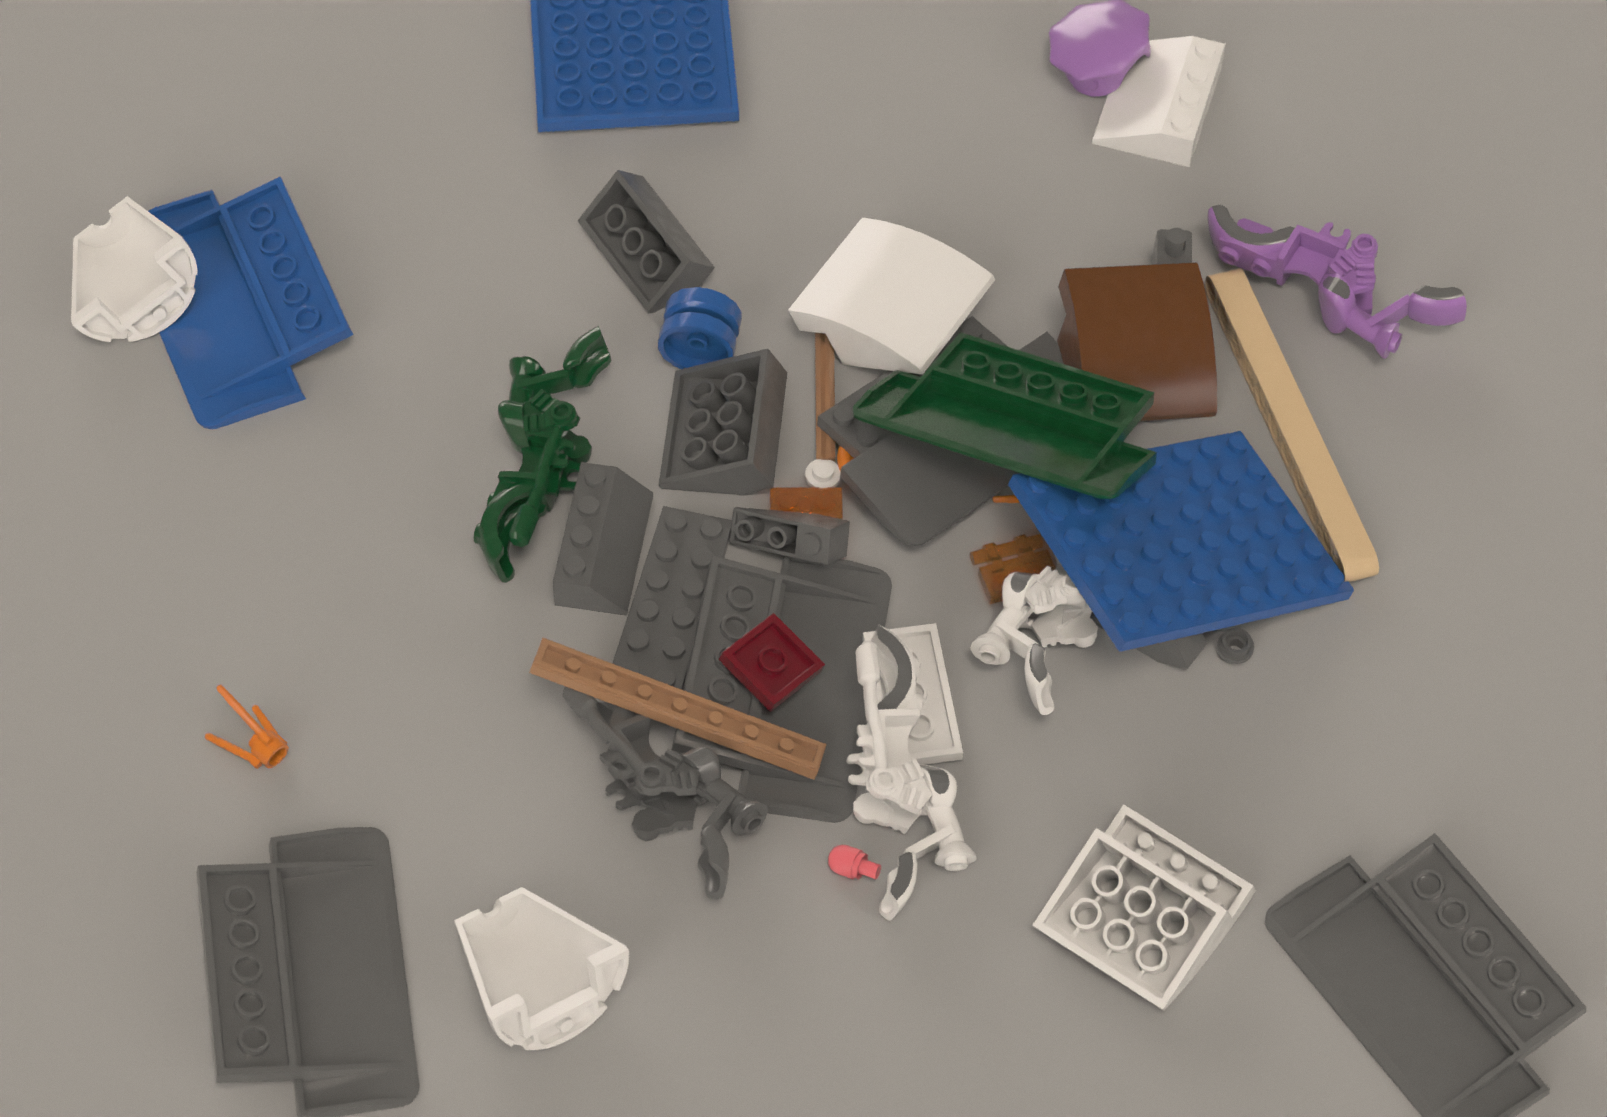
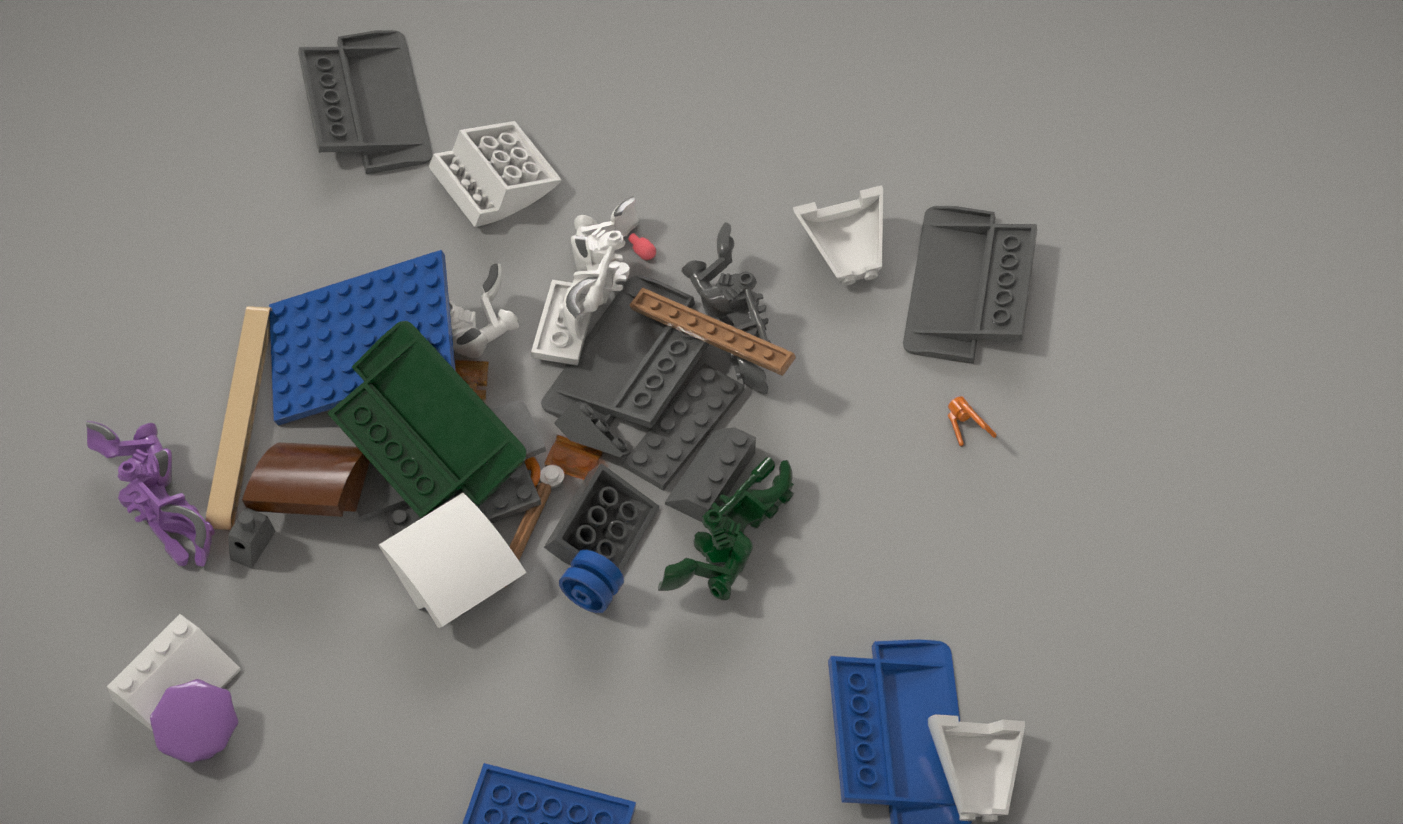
camera: 160 degrees left, 0 degrees up
(644, 240) = (596, 678): dark grey slope -> none
(771, 662) = (642, 349): dark red plate -> none

